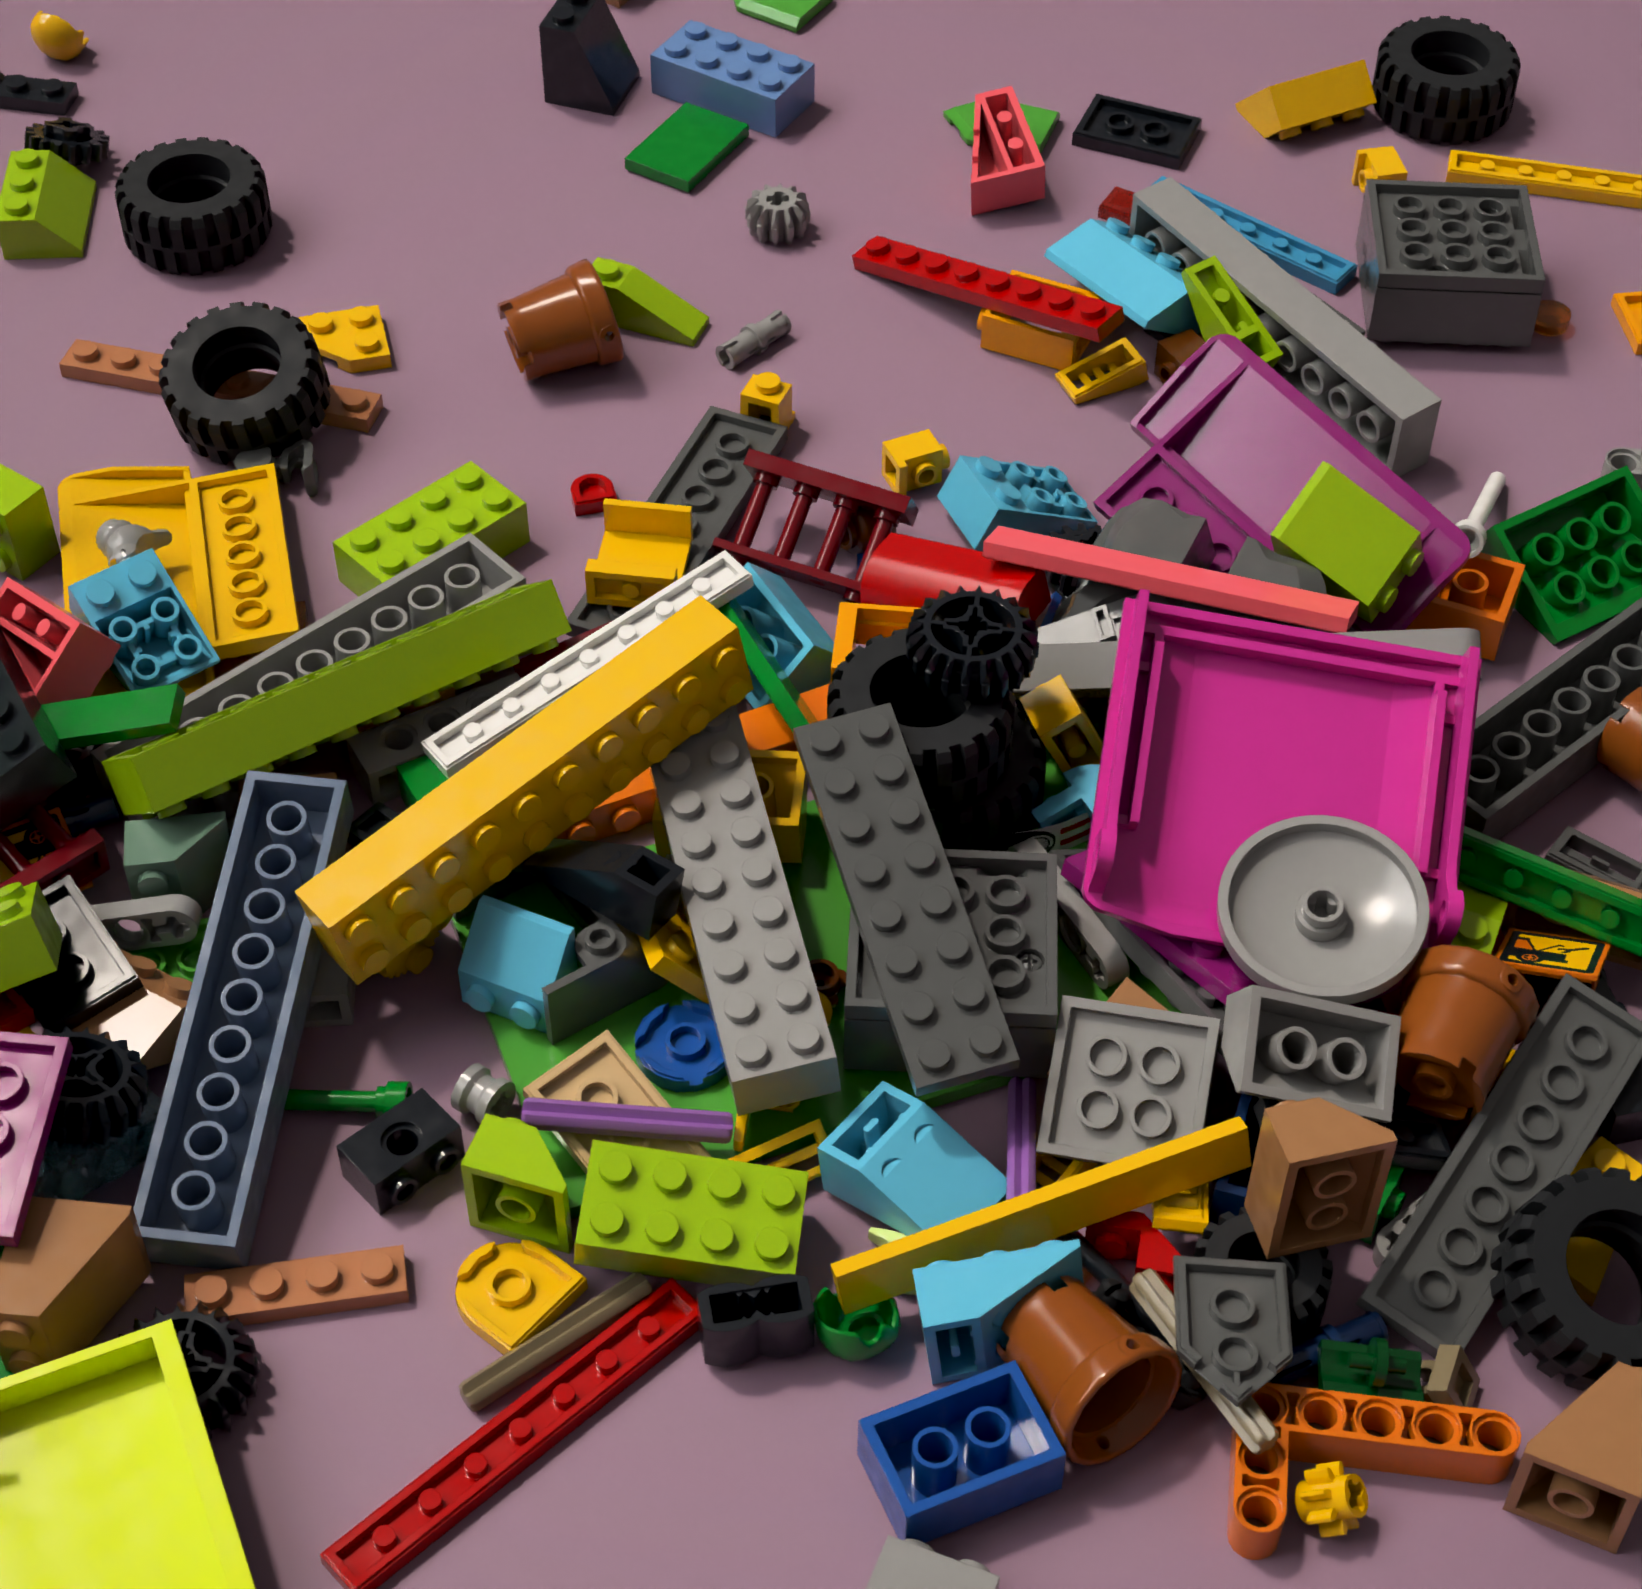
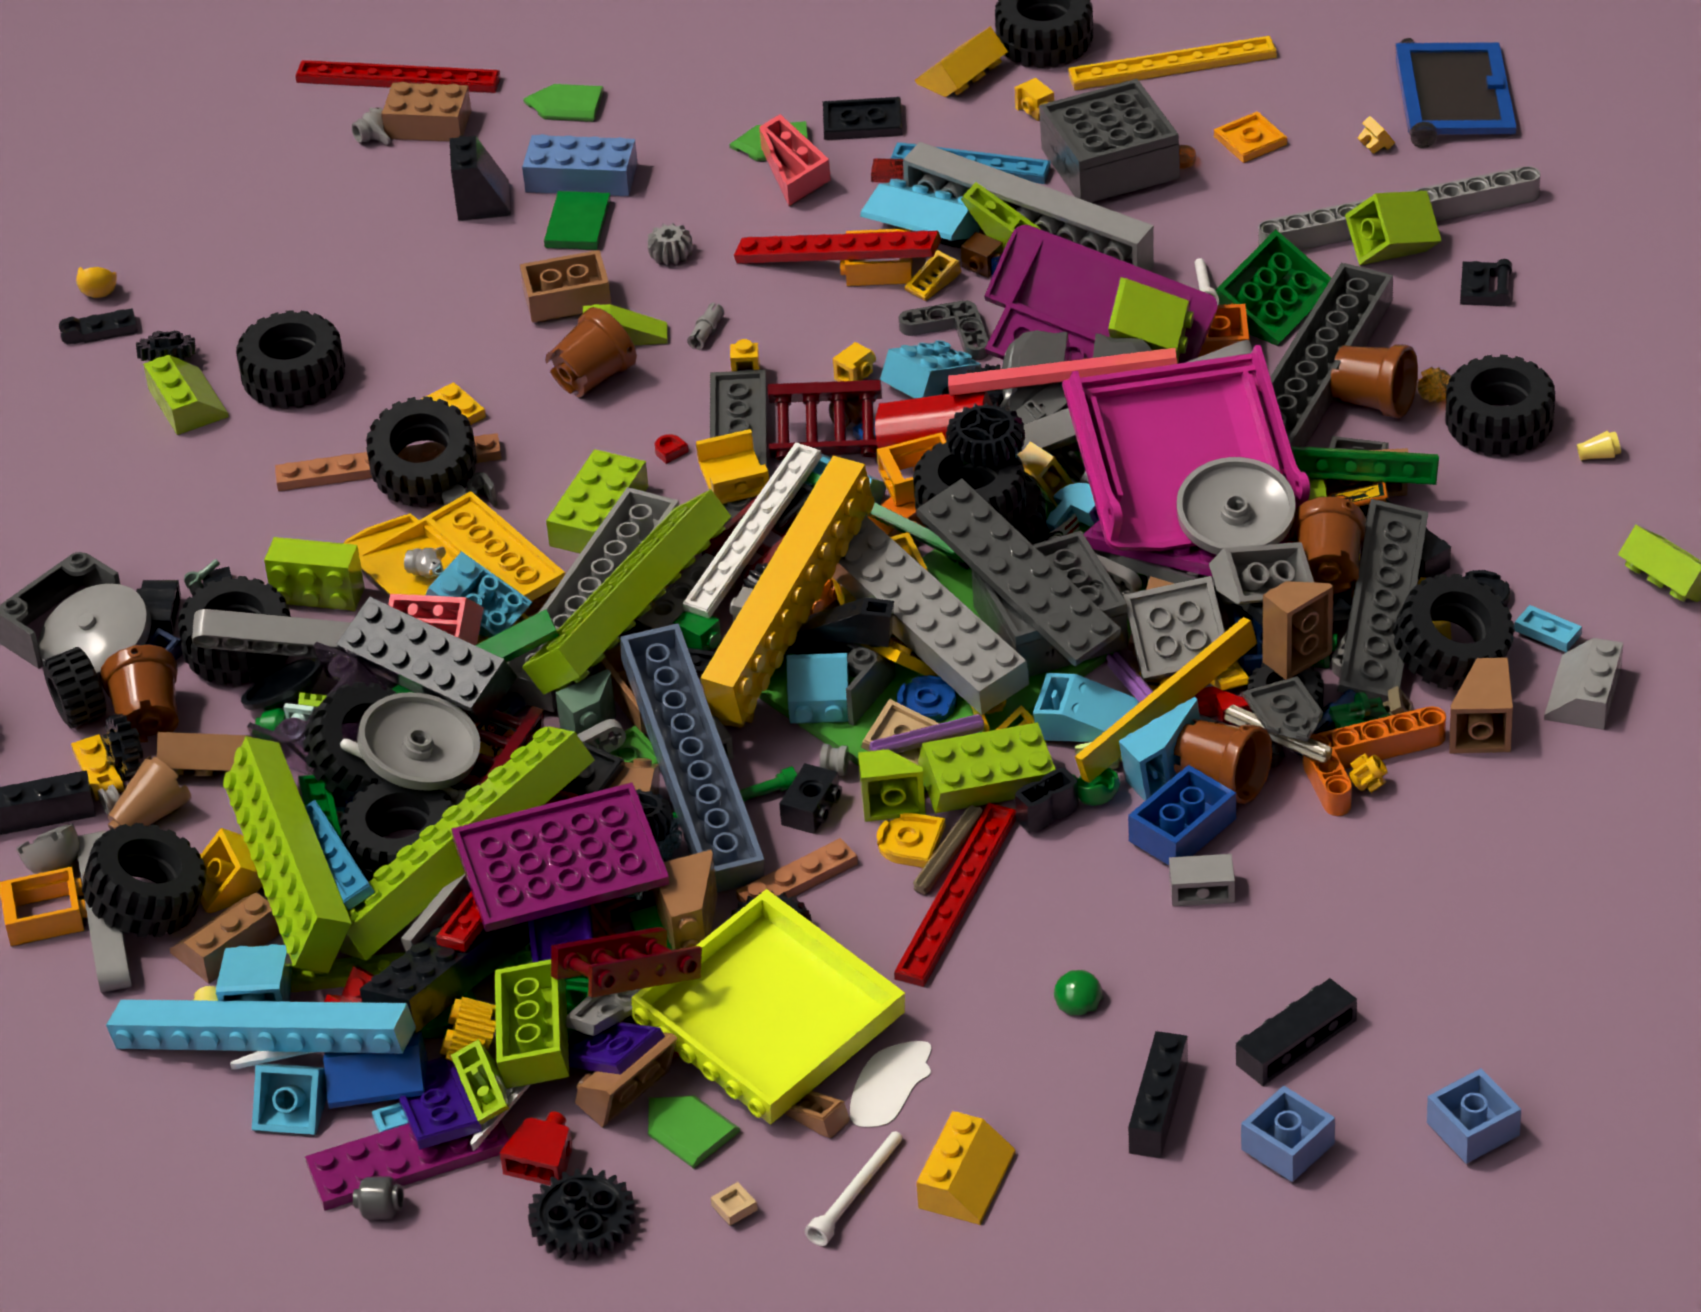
camera: 20 degrees left, 5 degrees down
(601, 220) = (564, 285): none -> medium nougat brick
(1113, 446) = (964, 317): none -> dark grey beam

